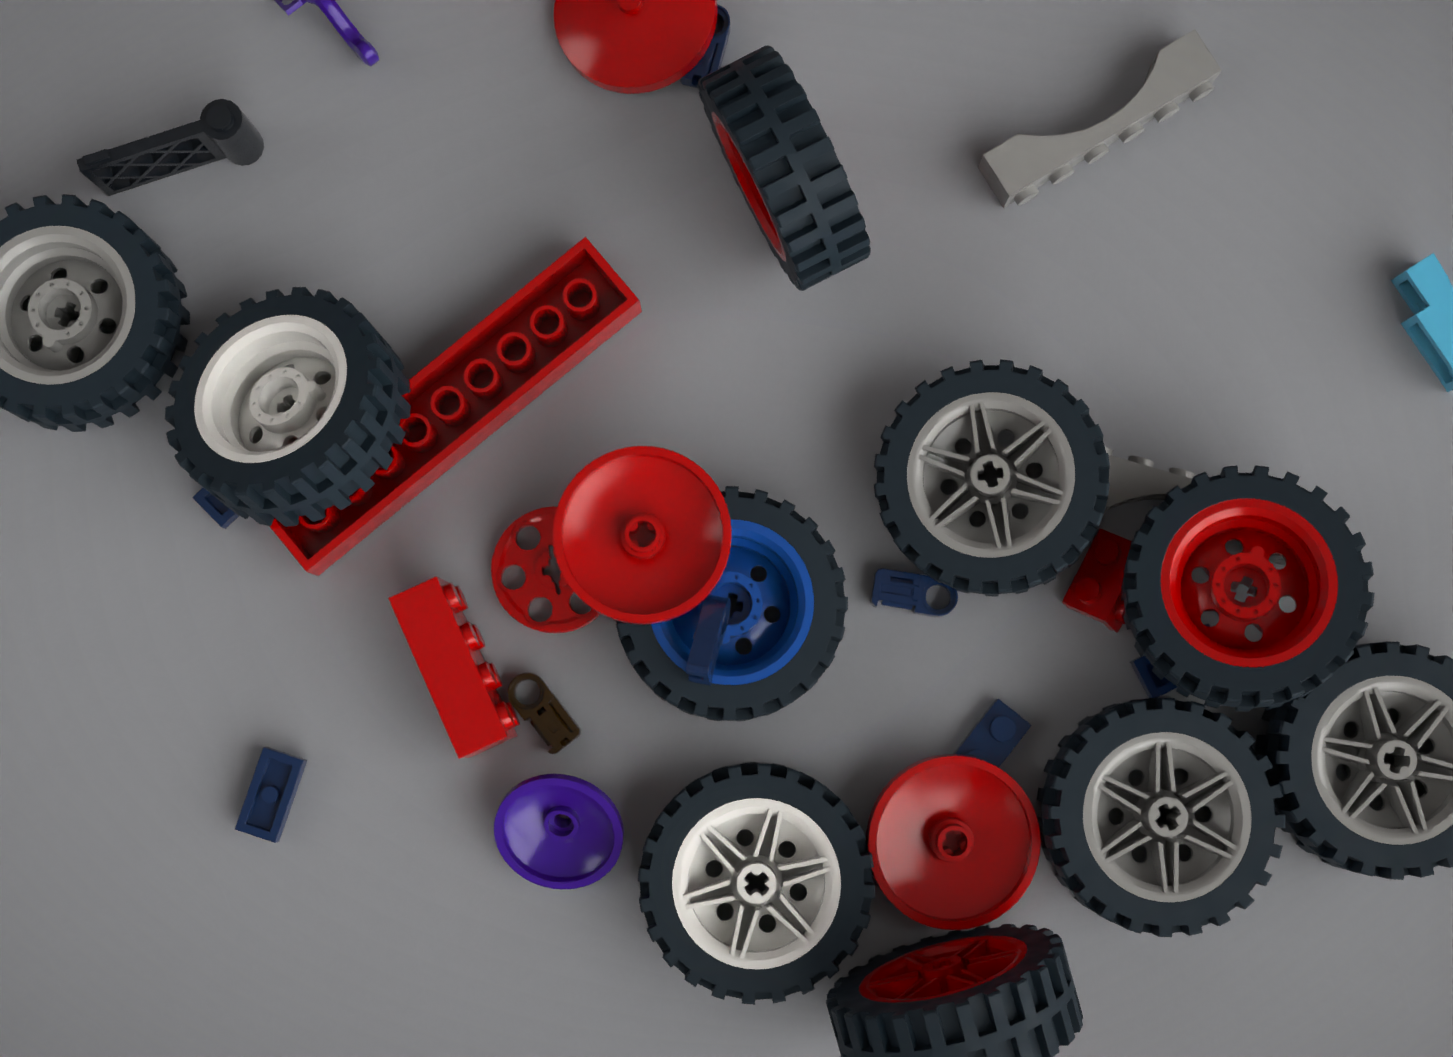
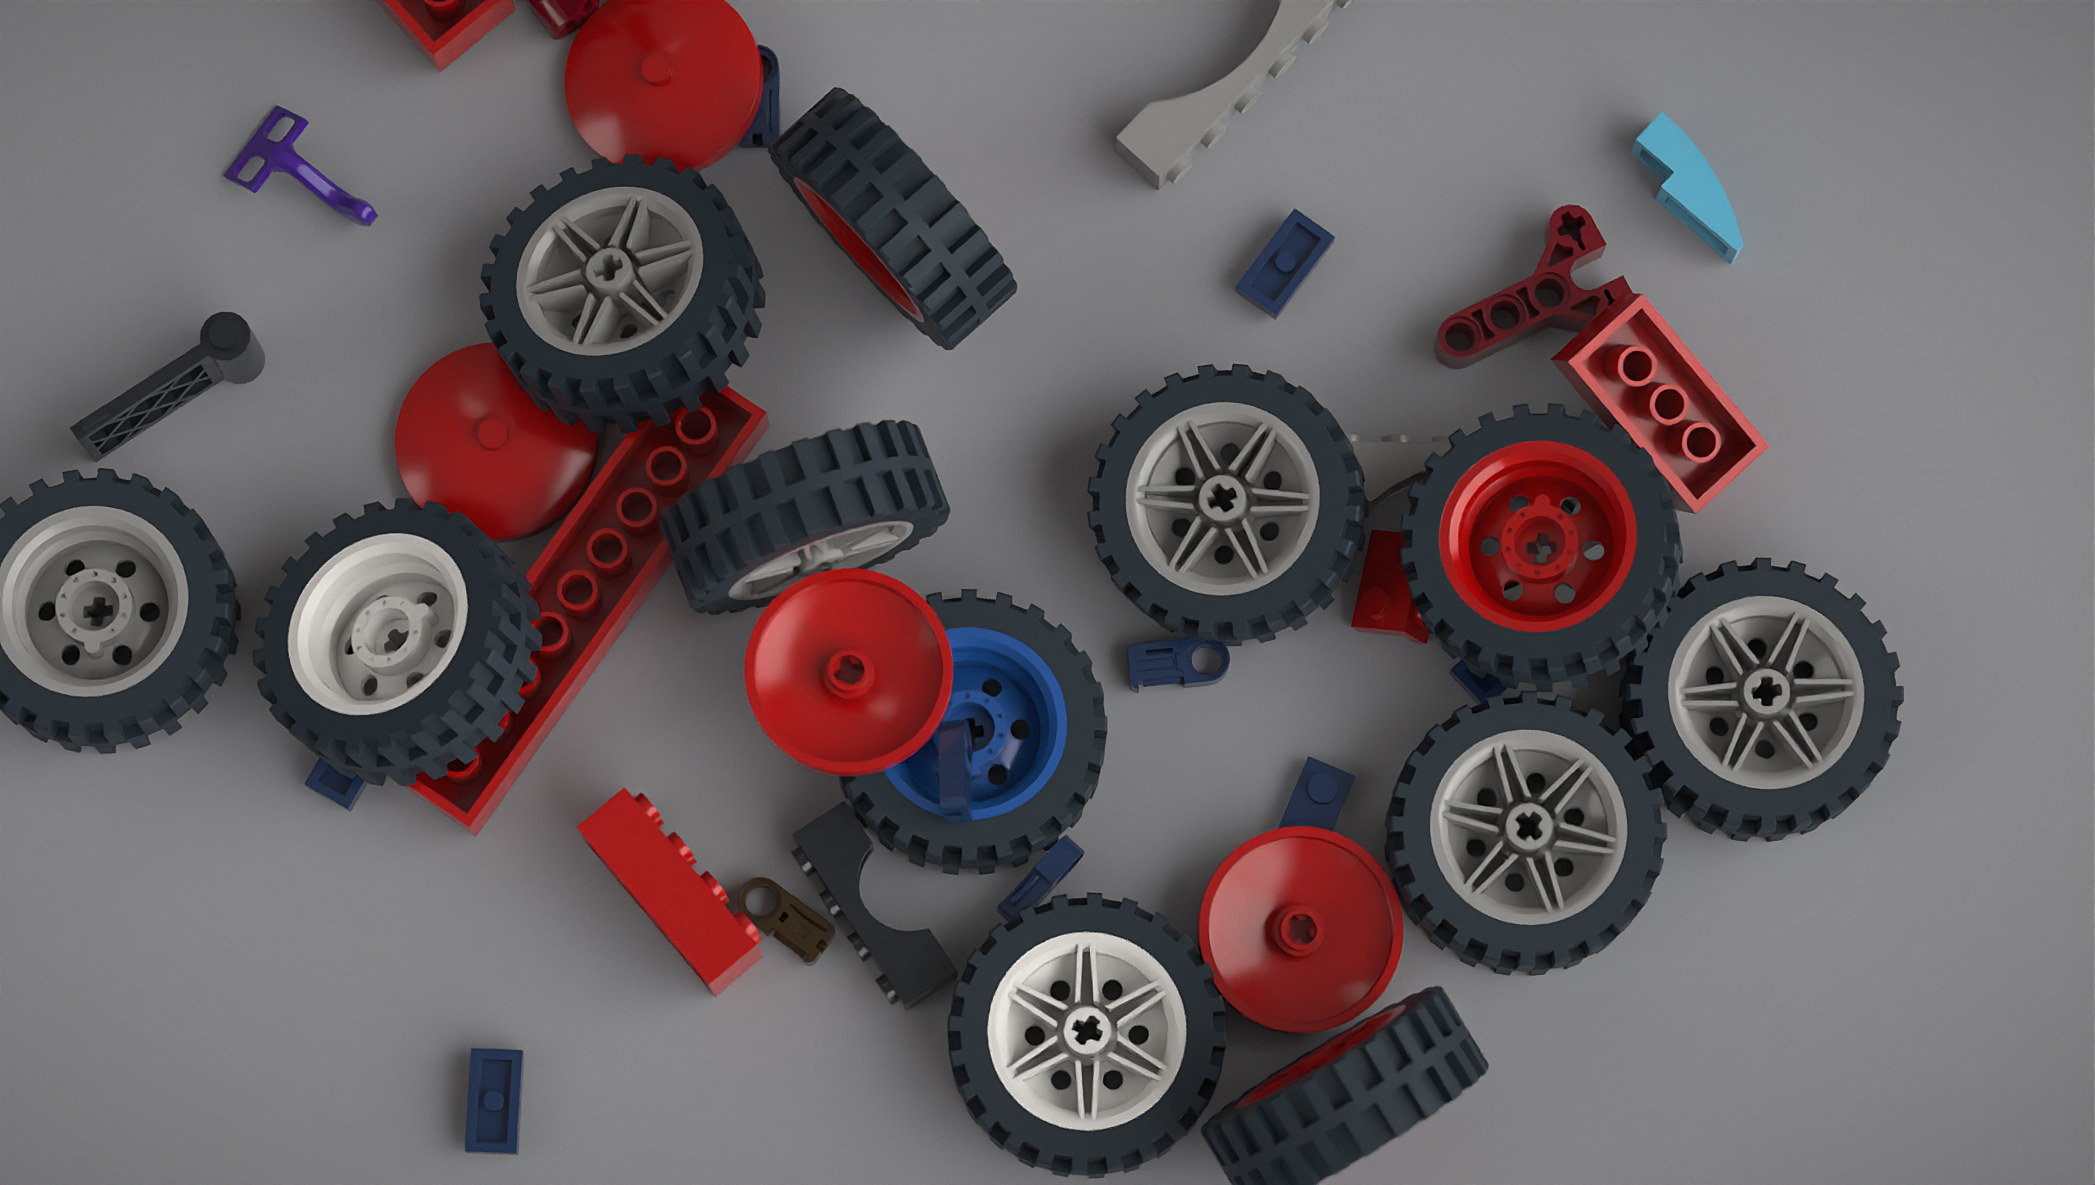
camera: 20 degrees left, 5 degrees down
(423, 264) = (487, 448): none -> red dish
(520, 166) = (607, 255): none -> wheel
(536, 584) = (737, 774): red wedge -> none
(556, 849) = (847, 1073): dark purple dish -> none
(598, 670) = (909, 961): none -> black arch
(642, 392) = (804, 511): none -> black wheel
(755, 739) = (1042, 878): none -> dark blue piece
(1089, 294) = (1285, 264): none -> dark blue plate
(1316, 395) = (1553, 272): none -> dark red beam
(1368, 470) = (1655, 388): none -> red brick

